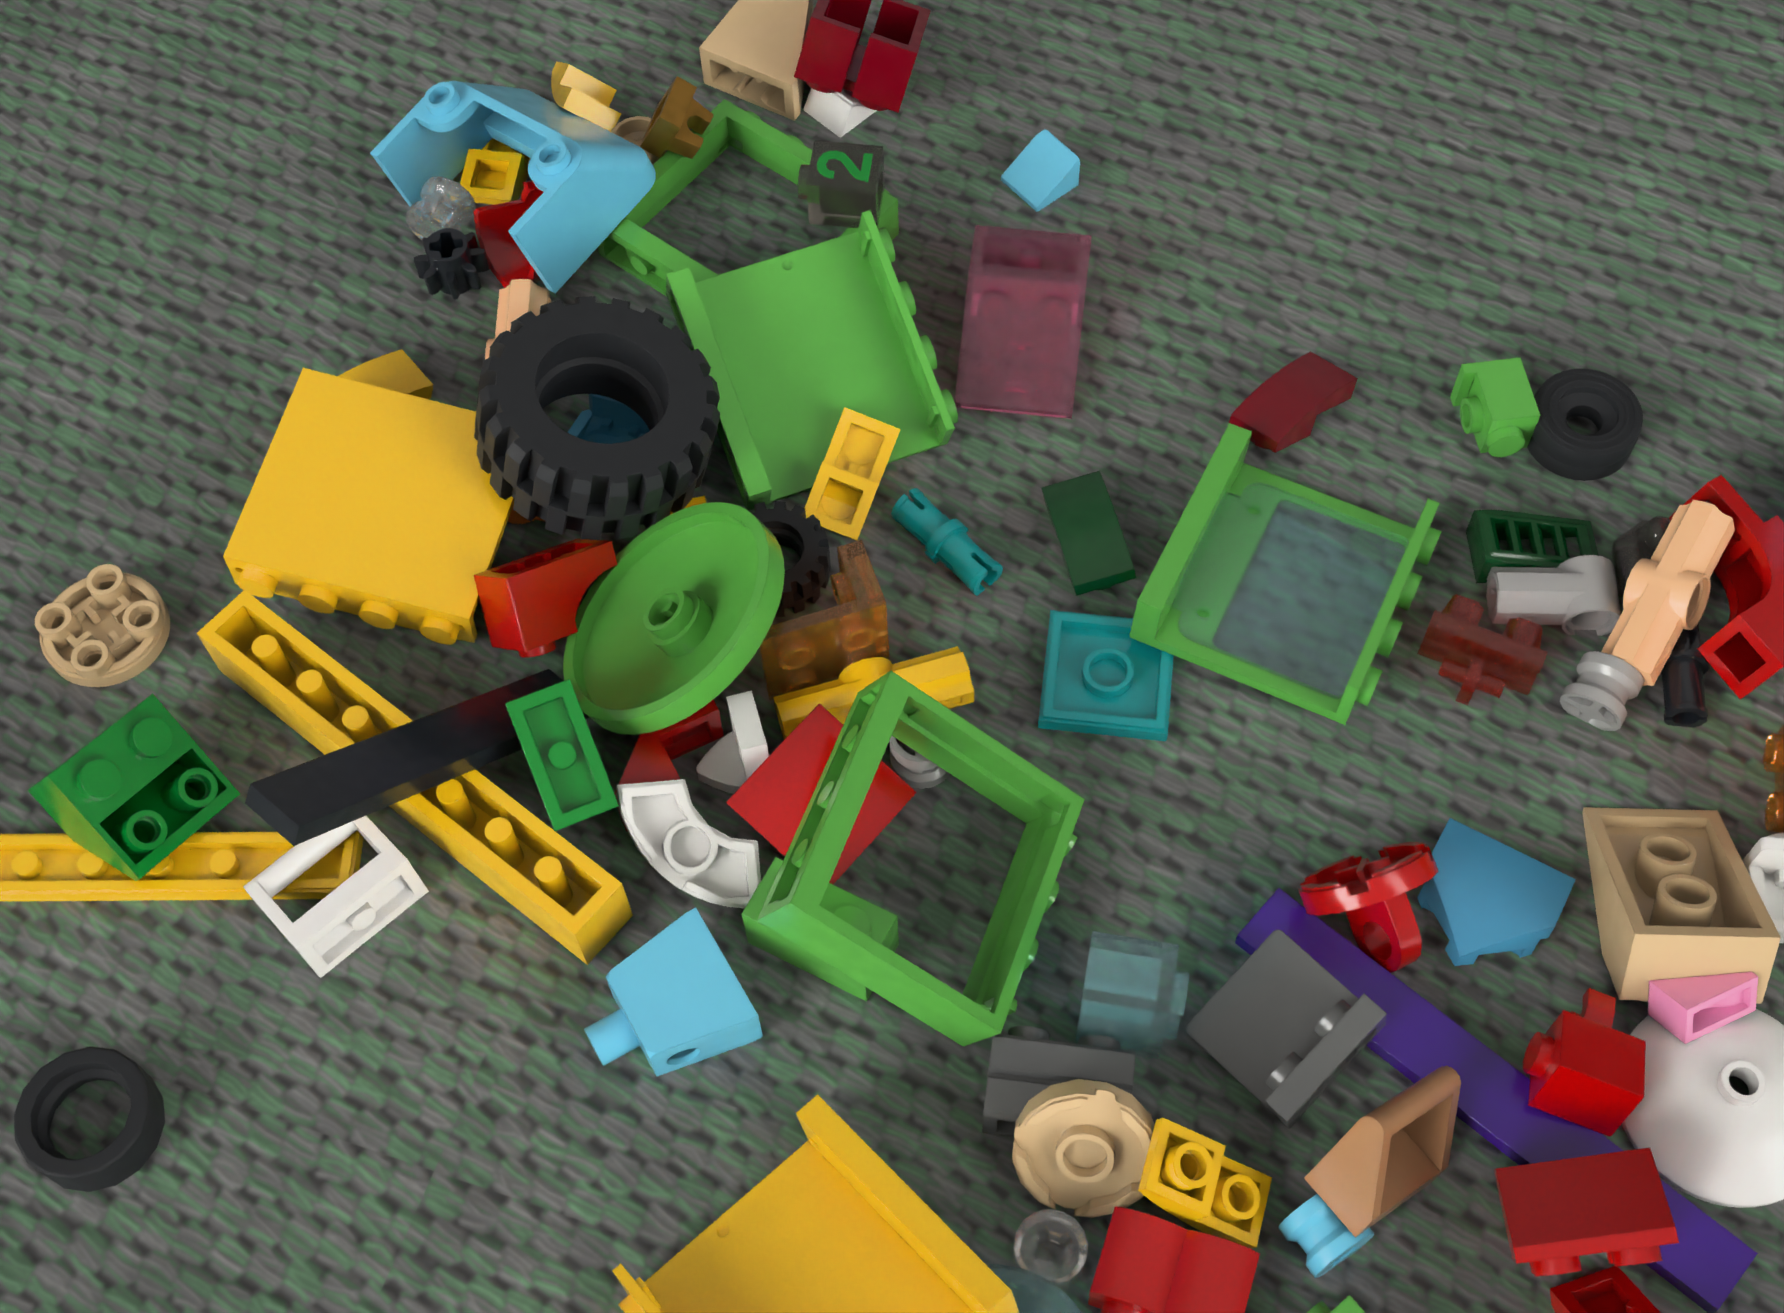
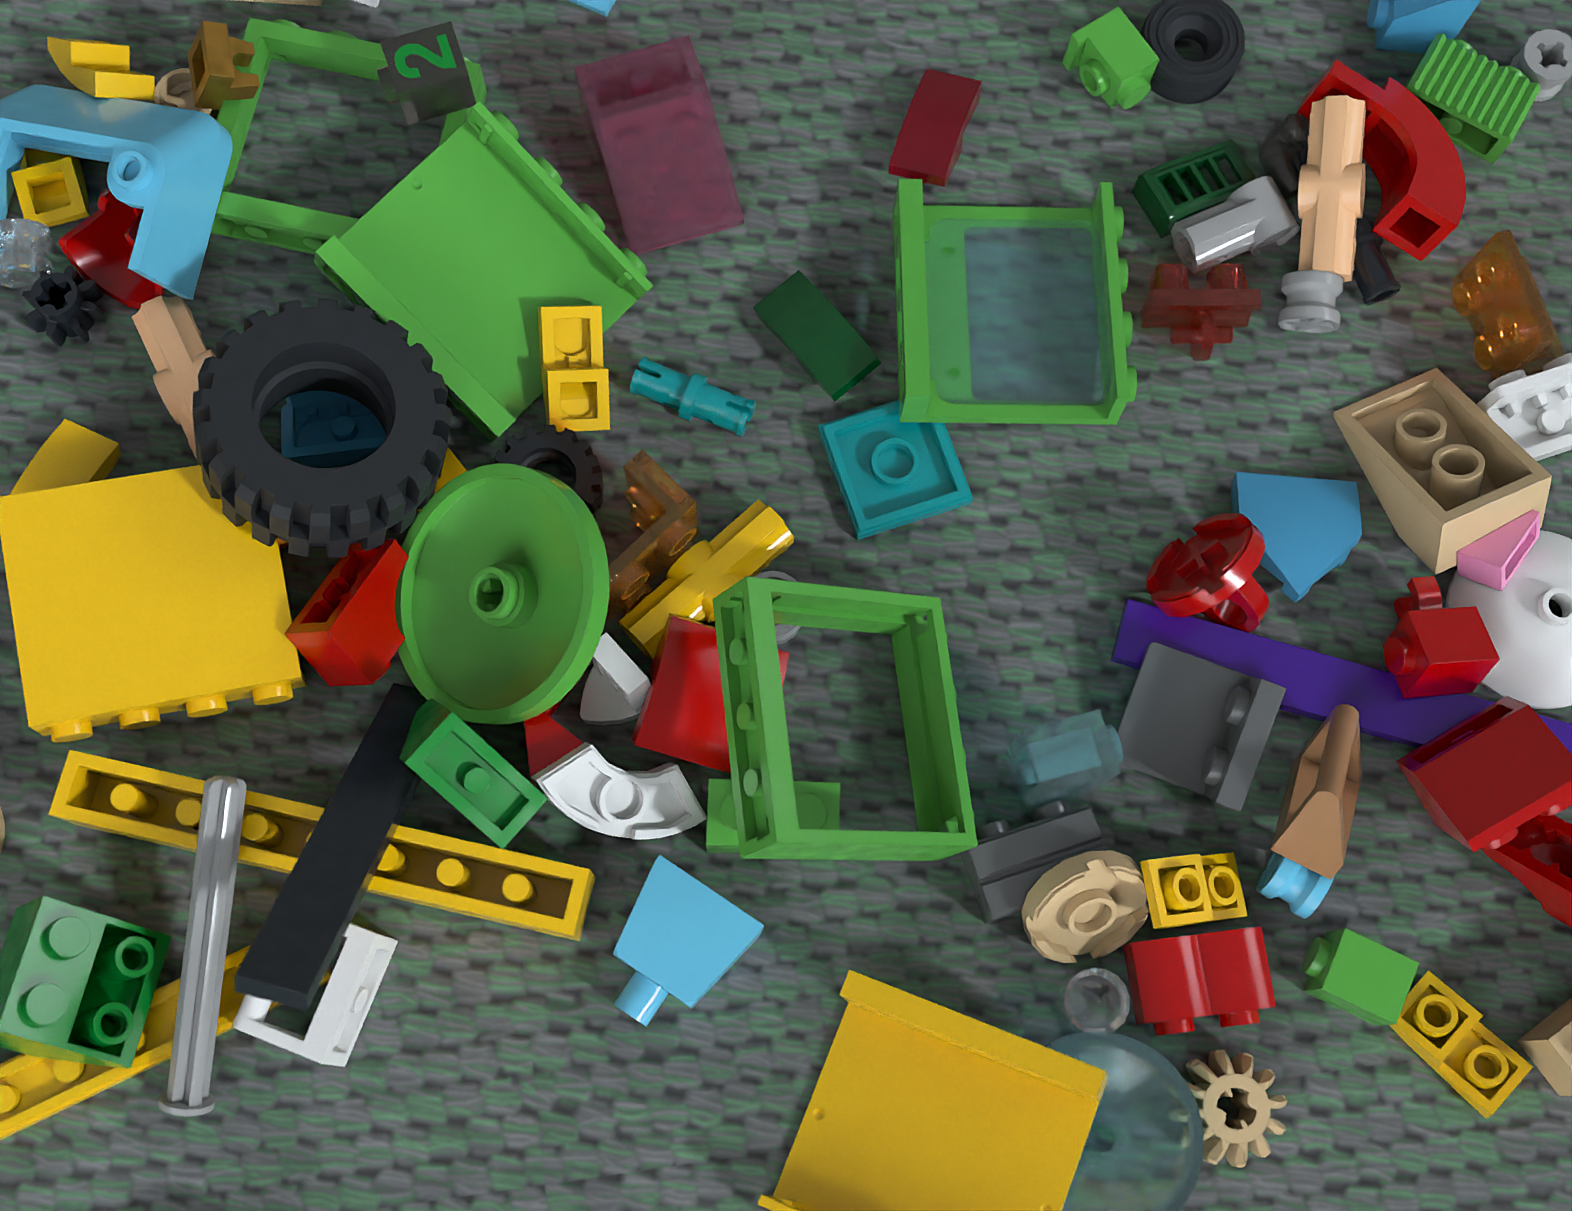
camera: 35 degrees left, 15 degrees up
(240, 824) = (205, 948): none -> light grey axle

